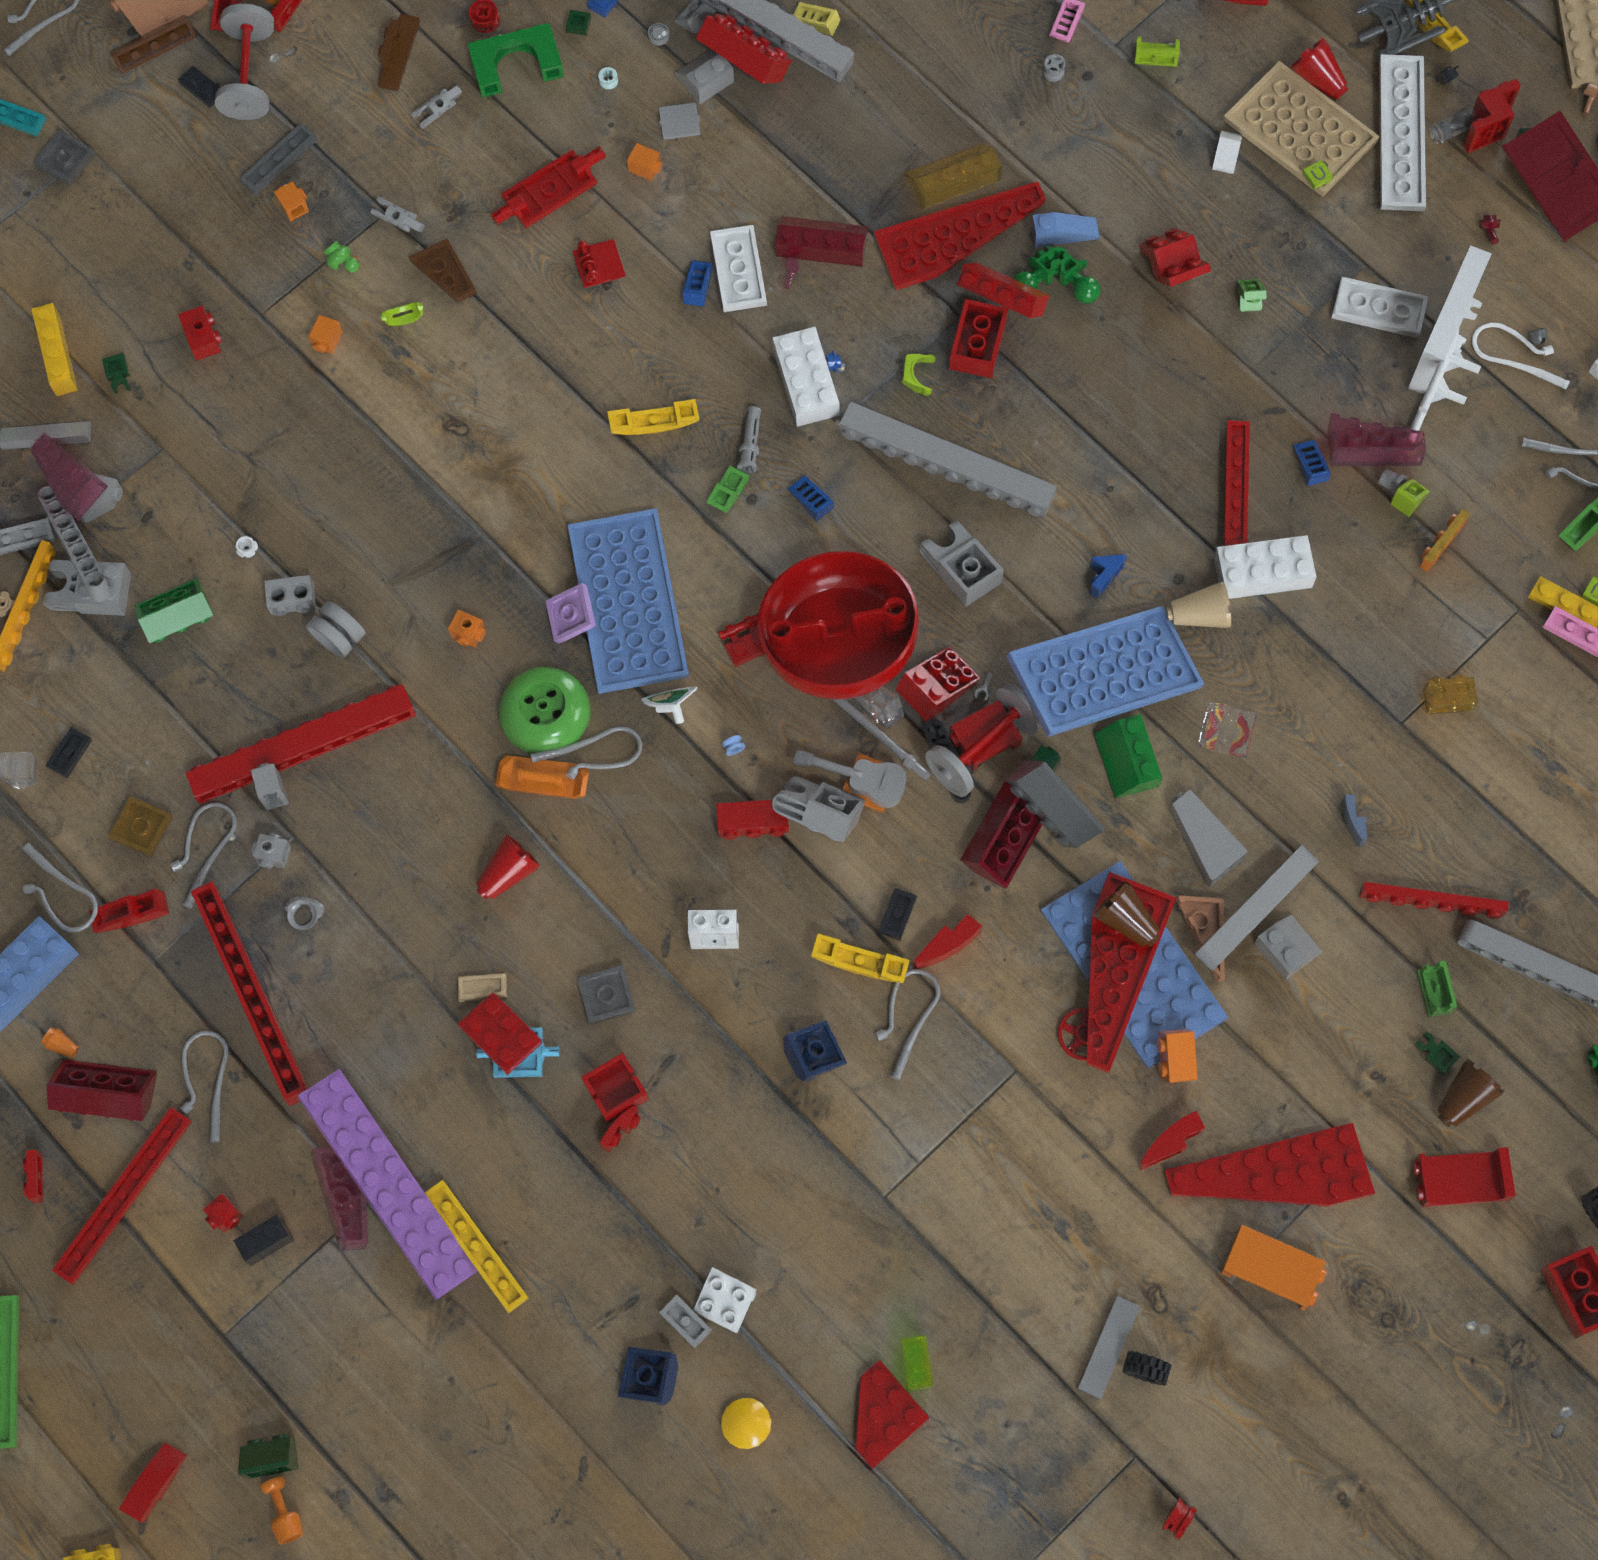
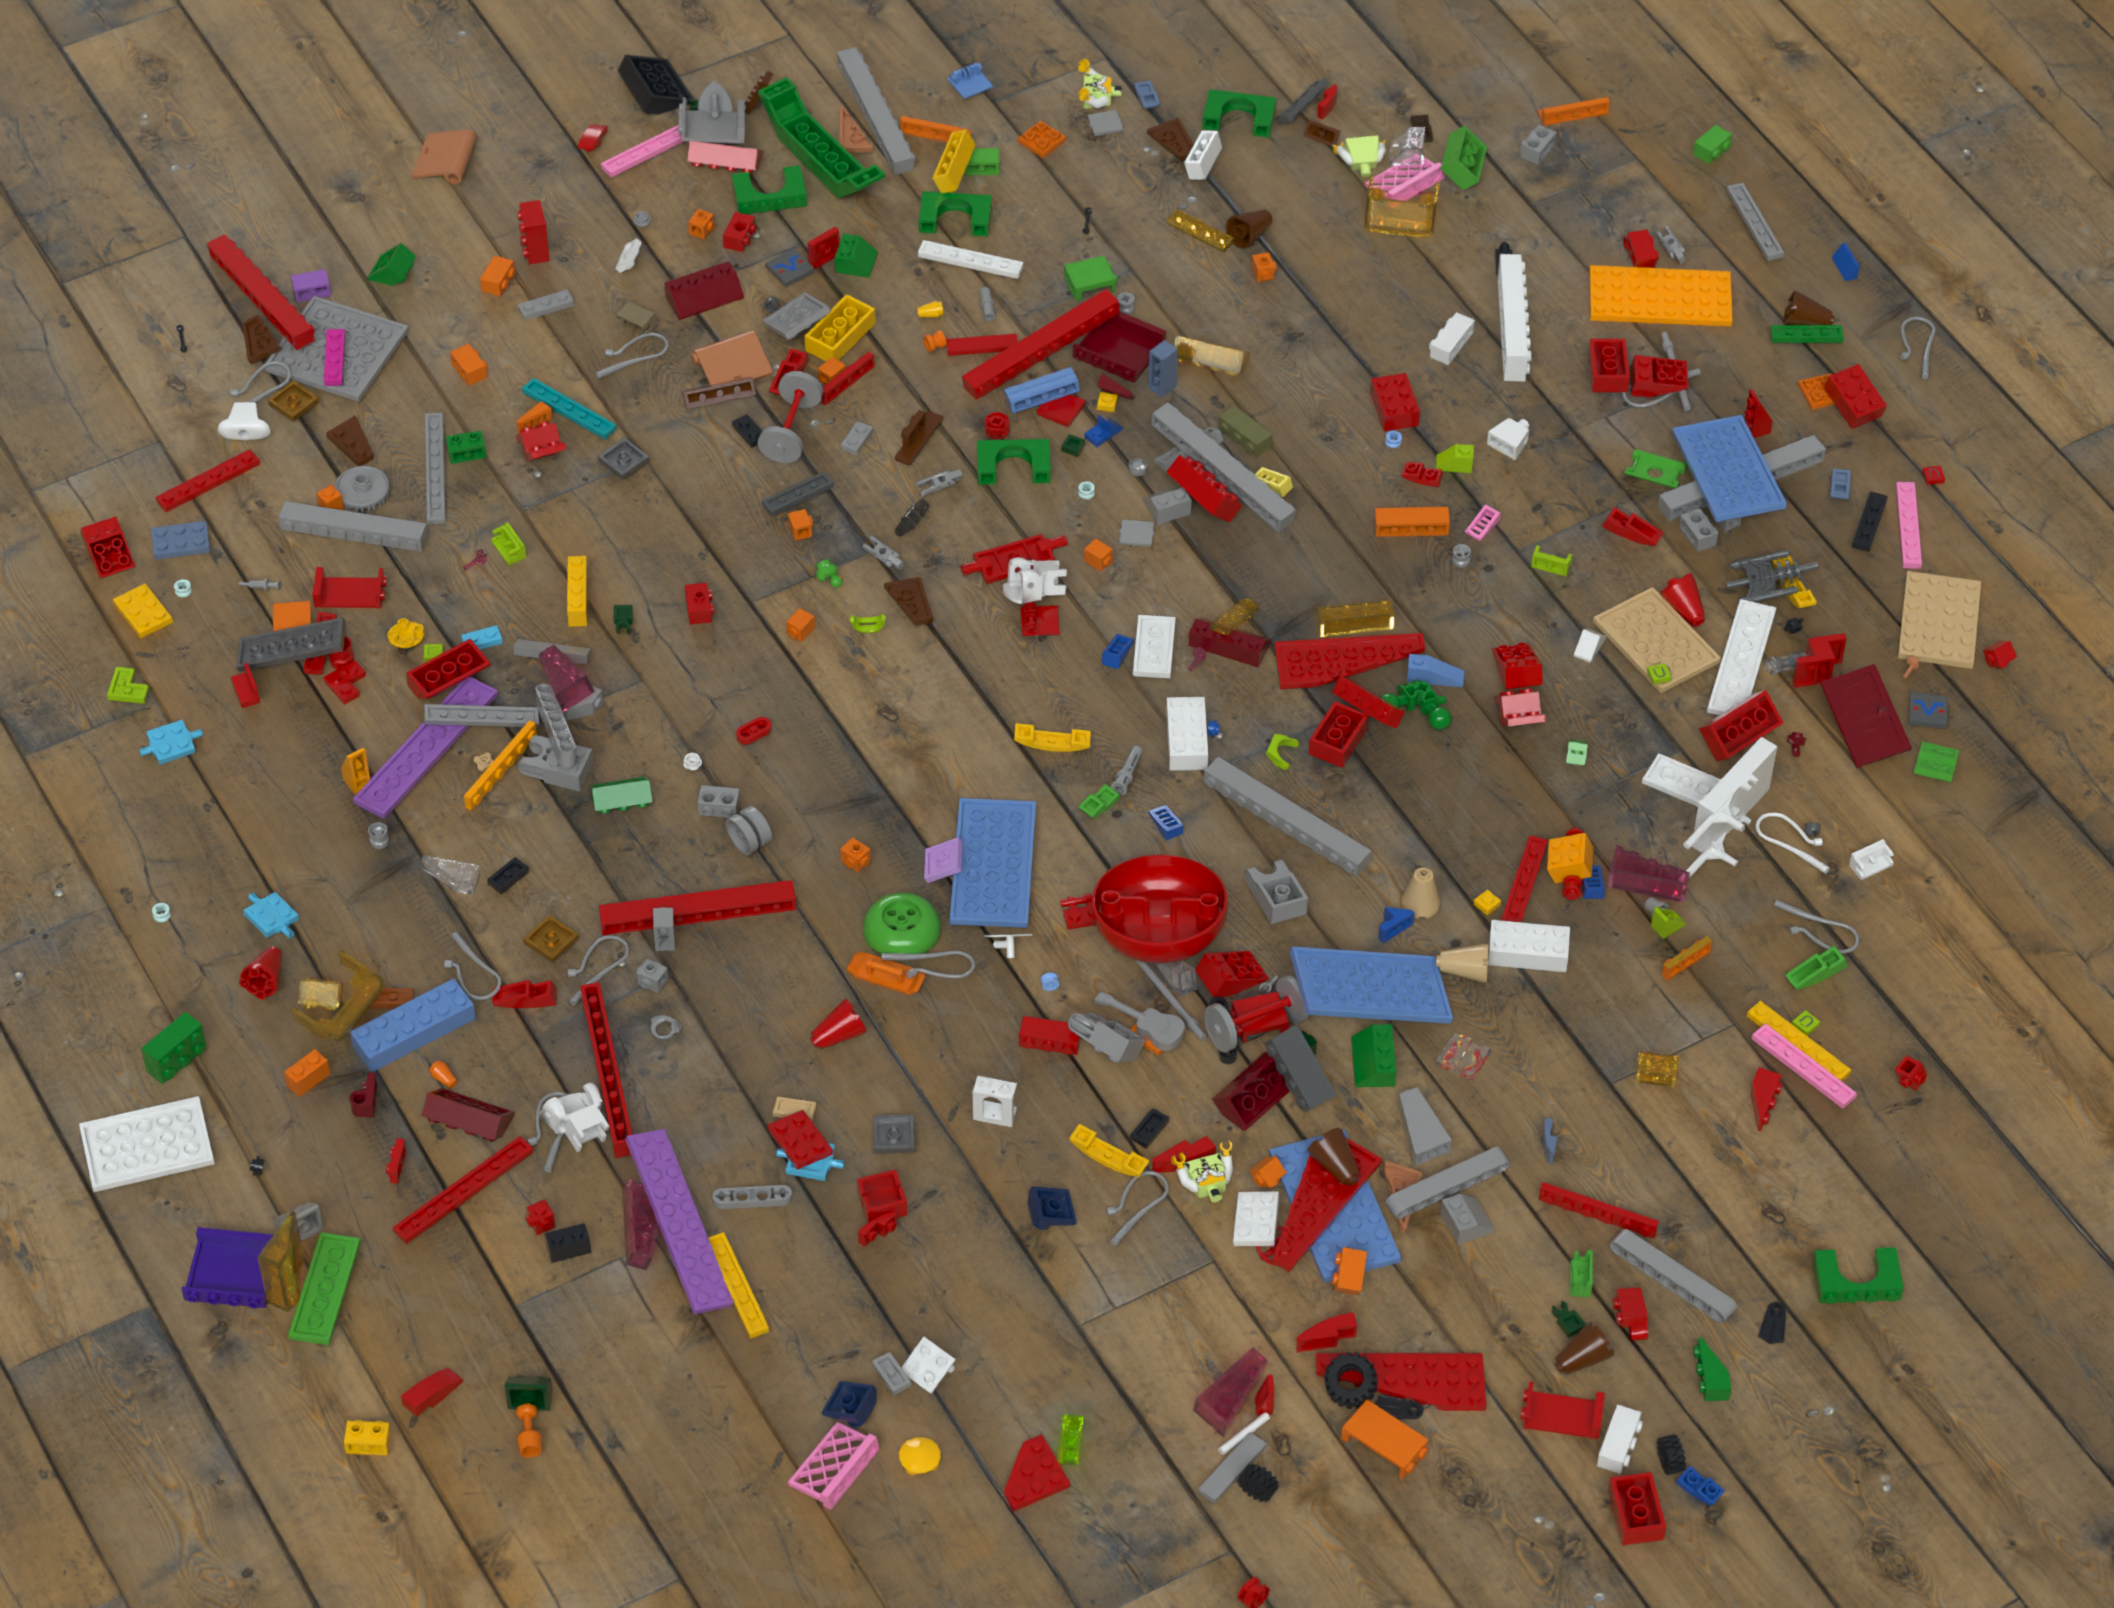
camera: 10 degrees right, 20 degrees down
(229, 1064) = (576, 1116): none -> white piece
(304, 488) = (753, 730): none -> red plate
(327, 68) = (856, 438): none -> light grey plate
(418, 160) = (912, 517): none -> clear smoke hinge
(463, 1121) = (752, 1200): none -> light grey beam
(577, 227) = (1032, 584): none -> white piece
(670, 1468) = (849, 1470): none -> bright pink fence
(822, 211) = (1235, 616): none -> clear yellow plate
(980, 962) = (1207, 1174): none -> torso
(987, 36) = (1411, 521): none -> orange brick
(1048, 943) = (1268, 1172): none -> orange brick
(1050, 1006) = (1256, 1219): none -> white plate
(1081, 1258) = (1228, 1394): none -> clear pink wedge
(1109, 1297) = (1243, 1433): none -> white bar
(1124, 1248) = (1265, 1397): none -> red slope
(1126, 531) = (1422, 894): none -> tan cone
(1155, 198) = (1518, 666): none -> red slope
(1201, 518) = (1487, 902): none -> yellow plate
(1227, 1222) = (1350, 1363): none -> black tyre
(1274, 1217) = (1400, 1407): none -> black piece
(1283, 444) = (1570, 861): none -> light orange brick
(1428, 222) = (1741, 725): none -> red brick
(1508, 1028) = (1631, 1312): none -> red hinge
(1537, 1200) = (1620, 1439): none -> white brick
(1576, 699) = (1763, 1092): none -> red slope

